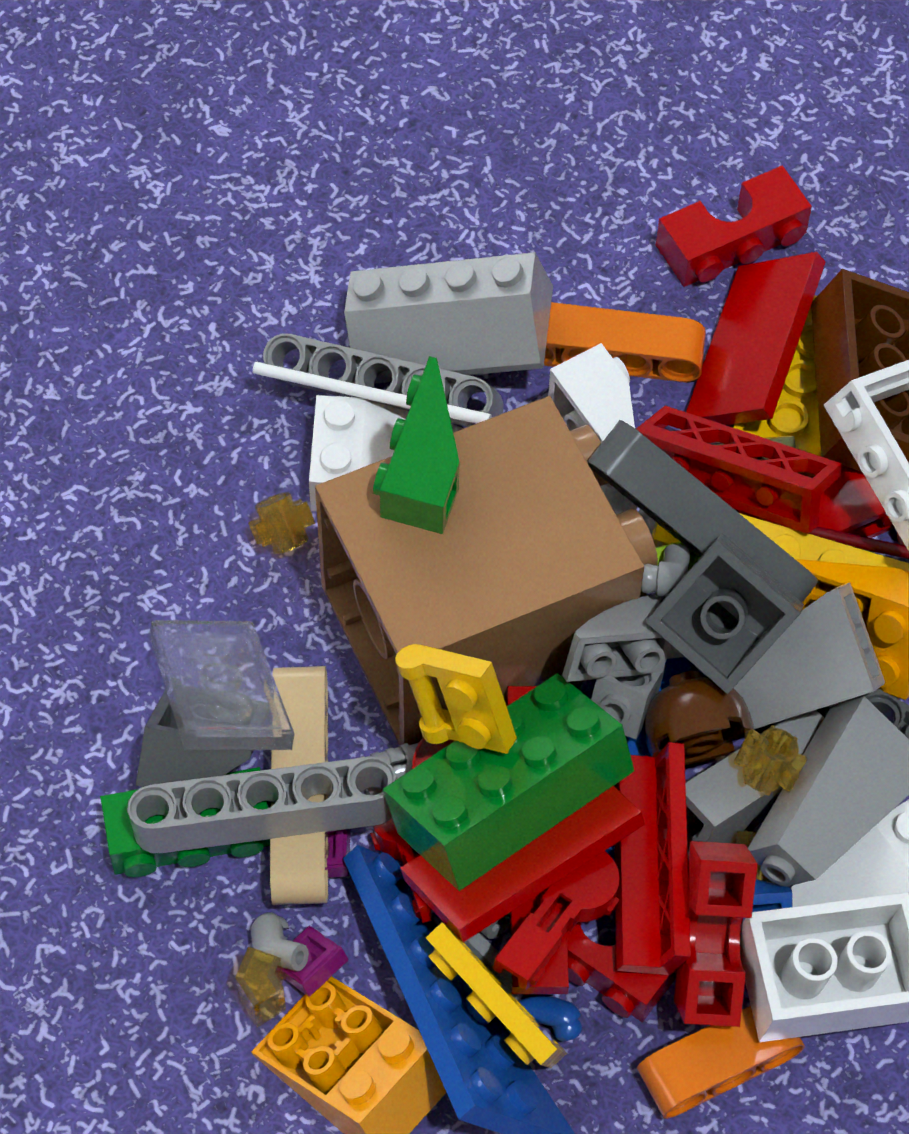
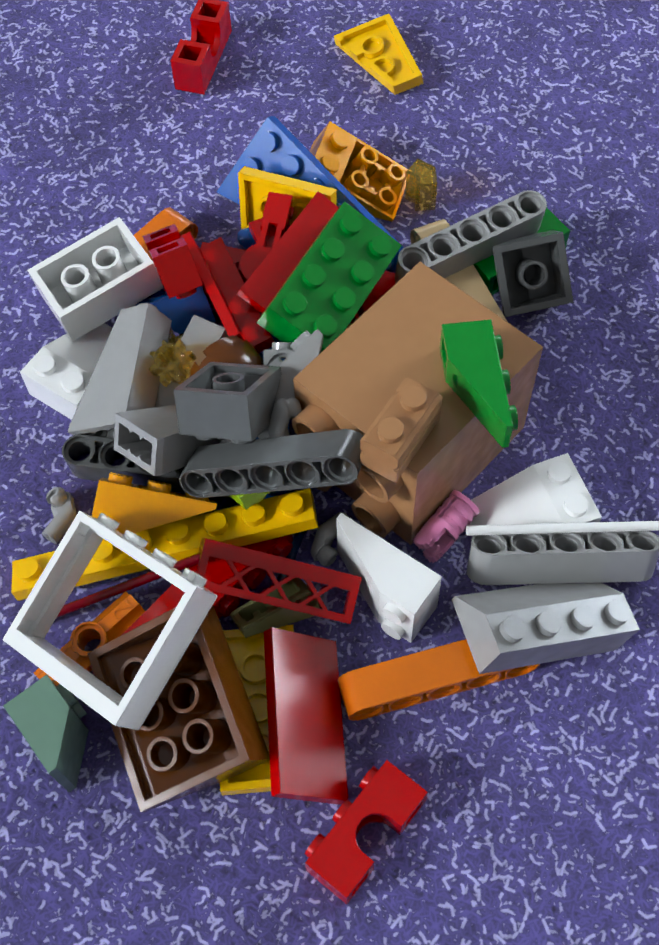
camera: 160 degrees right, 0 degrees up
(220, 686) = (540, 298): clear tile -> none
(269, 937) = (424, 204): light grey arm -> none
(281, 522) = (572, 438): clear yellow gear -> none
(323, 961) = (404, 213): magenta tile -> none
(471, 692) = (370, 257): yellow plate -> none
(553, 421) = (400, 429): none -> medium nougat brick

